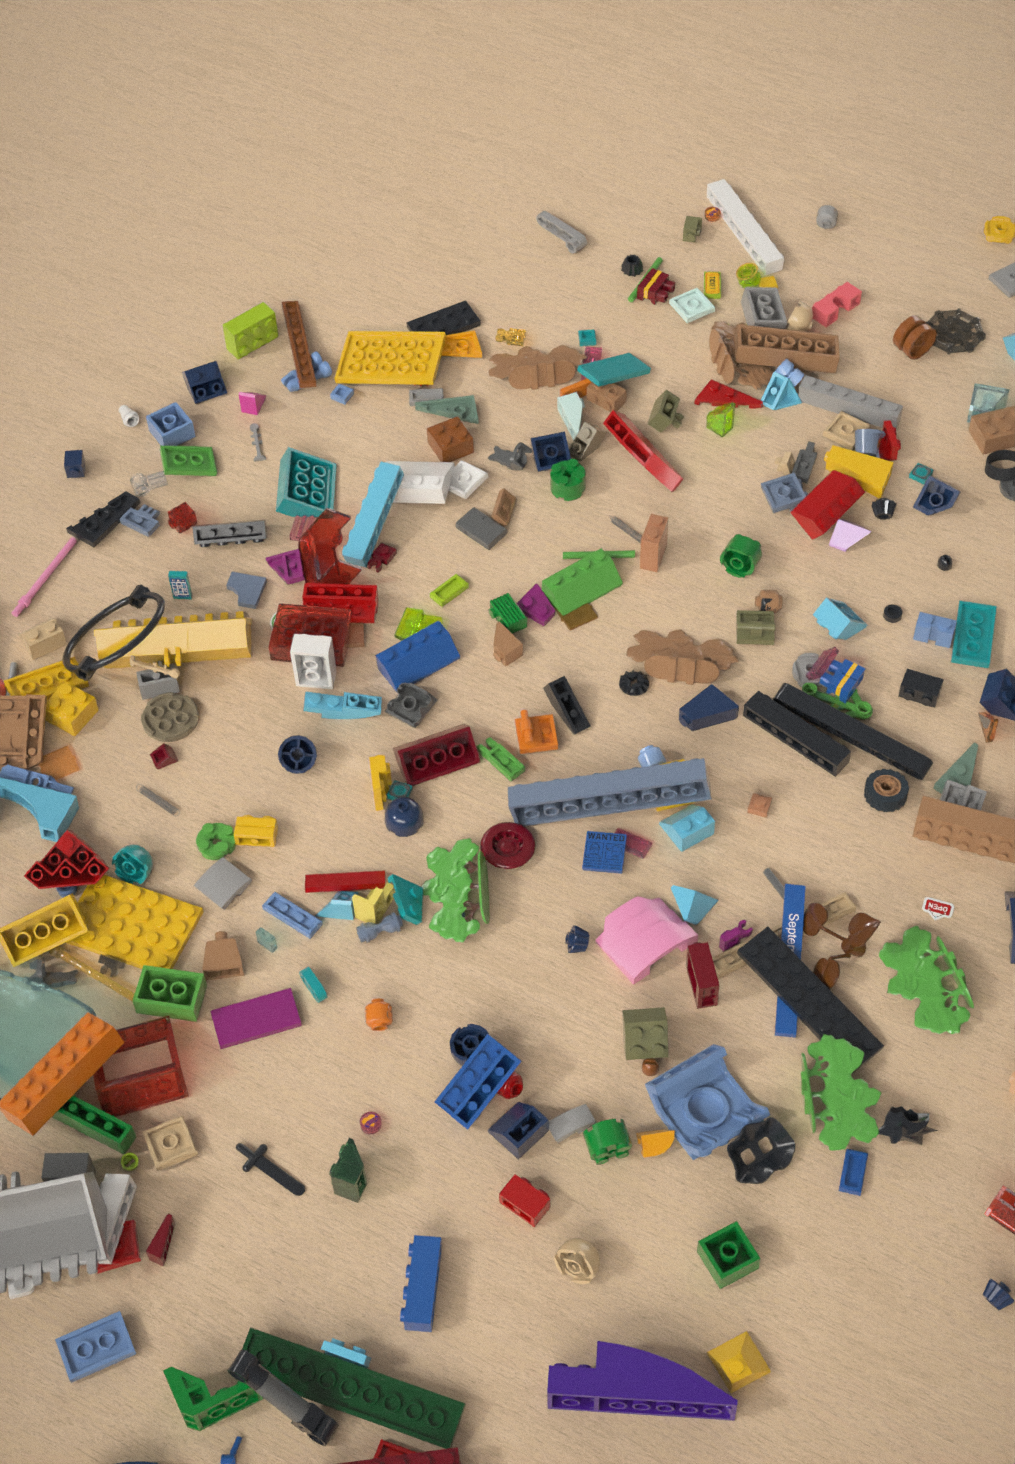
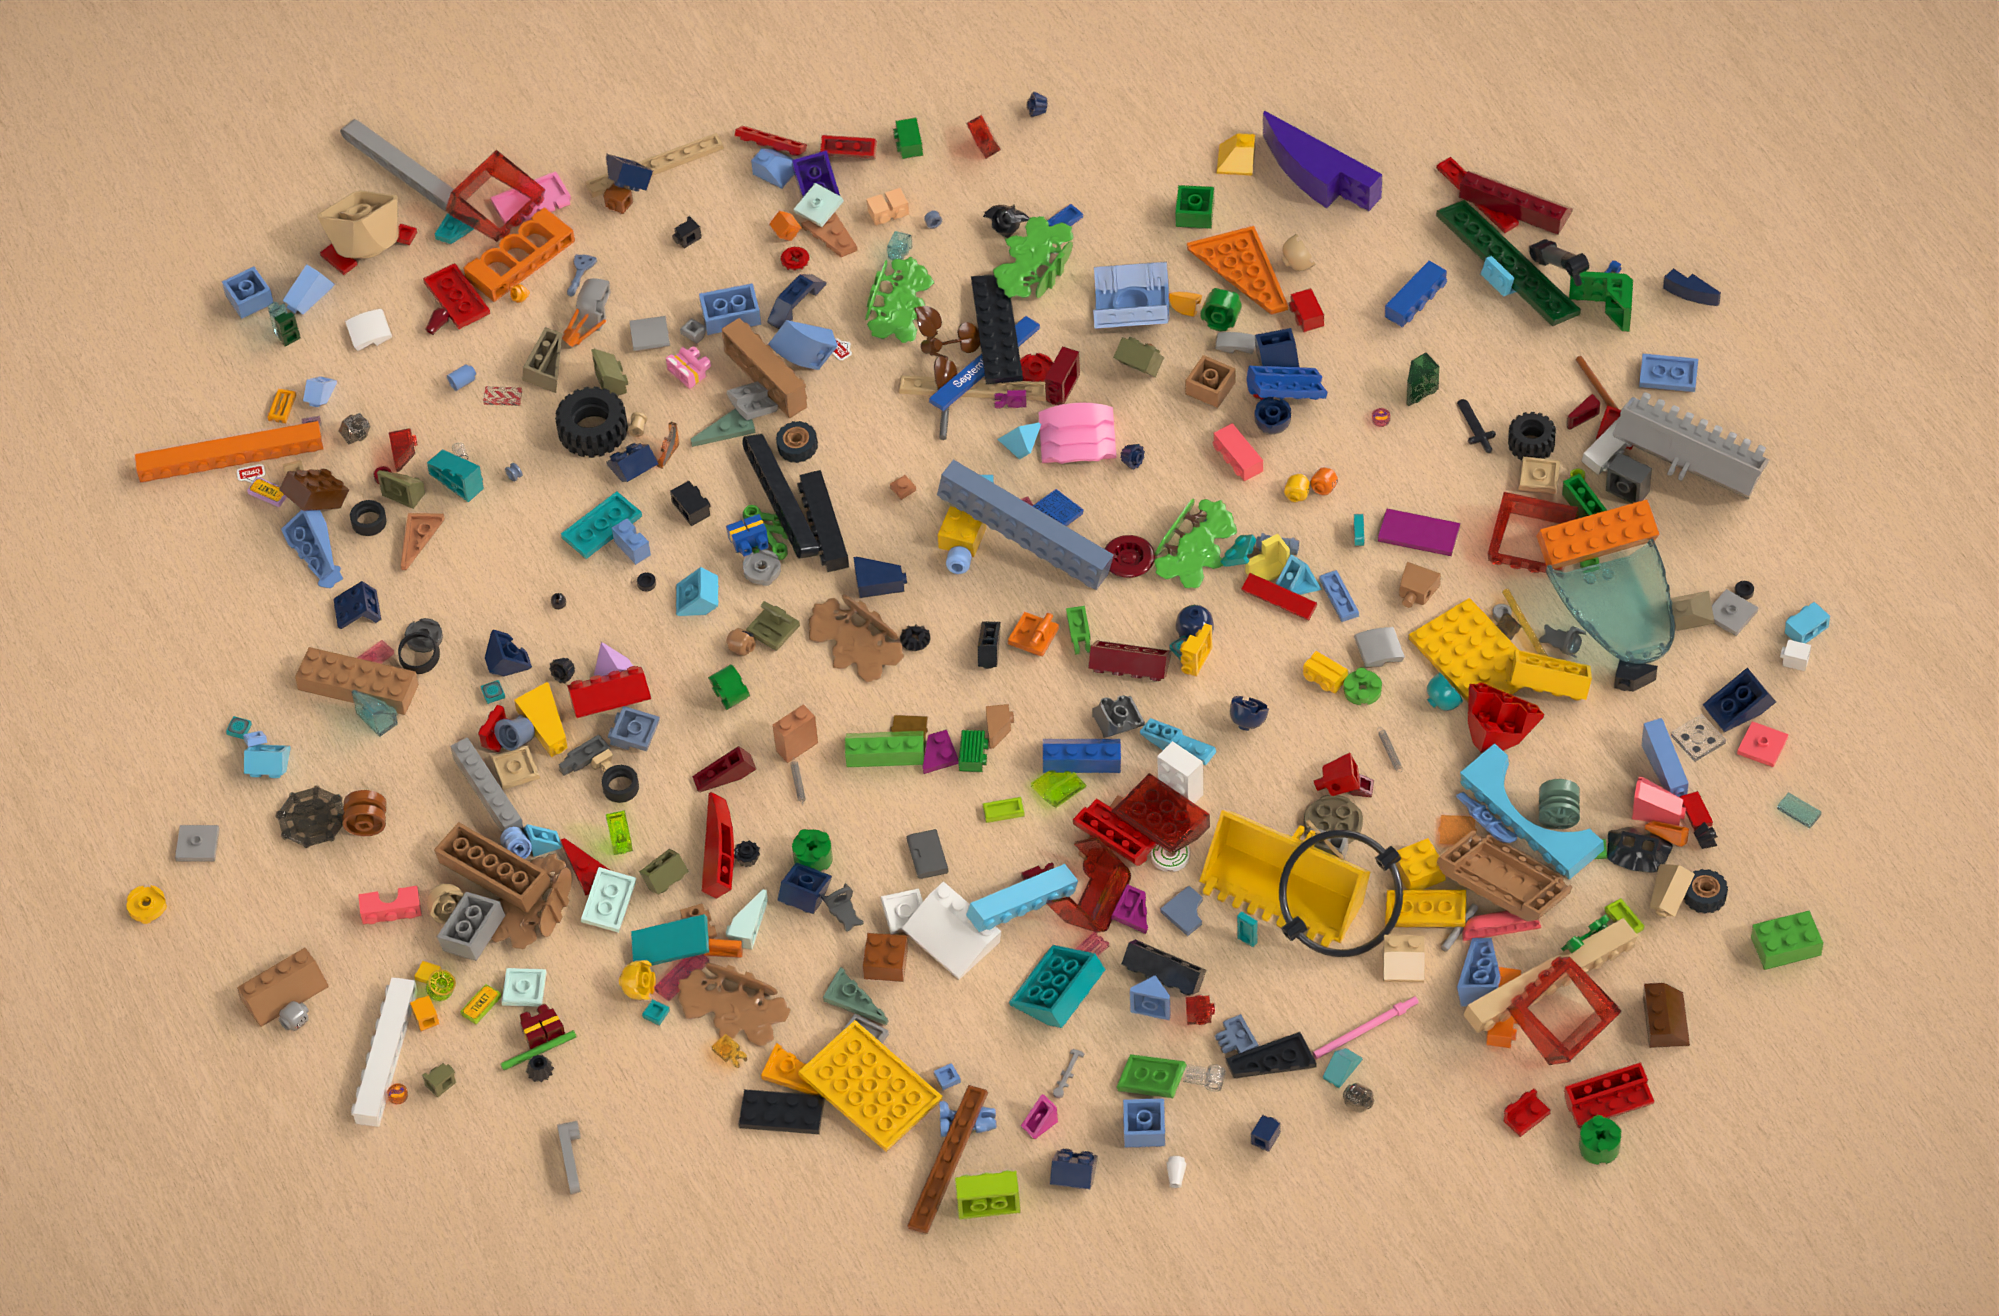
camera: 145 degrees left, 0 degrees up
(18, 522) = (1358, 1097): none -> clear smoke head
(45, 543) = (1341, 1066): none -> teal slope
(128, 978) = (1499, 610): none -> light grey tile
(168, 1291) = (1596, 383): none -> dark orange bar
(169, 993) = (1476, 573): bright green brick -> none
(180, 740) = (1339, 776): none -> red torso
(202, 1191) = (1533, 425): none -> black tyre
(221, 501) = (1150, 999): none -> medium blue slope
(266, 939) = (1373, 580): clear light blue tile -> none
(400, 995) = (1297, 488): none -> yellow head
(482, 1000) = (1238, 452): none -> coral brick
(503, 507) = (896, 856): medium nougat plate -> none
(560, 1054) = (1210, 381): none -> medium nougat brick
(587, 440) = (754, 881): dark tan slope -> none
(612, 554) = (844, 771): bright green bar -> none
(614, 339) = (638, 980): none -> yellow cylinder
(616, 457) = (747, 853): none -> black piece
(633, 1224) = (1243, 263): none -> orange wing
(686, 378) = (608, 899): none -> light aqua plate
(686, 504) = (725, 770): none -> dark red slope
(741, 255) = (424, 1013): none -> light orange brick
(741, 987) = (1035, 367): none -> red tile
(758, 468) = (620, 795): none -> black tyre
(764, 1164) = (1119, 253): black piece -> none
(822, 663) = (771, 554): clear pink tile -> none
(853, 227) = (287, 981): none -> medium nougat slope
(955, 865) = (804, 344): none -> medium blue piece
(976, 1089) = (933, 219): none -> sand blue bush
(980, 1037) = (899, 245): none -> clear light blue brick

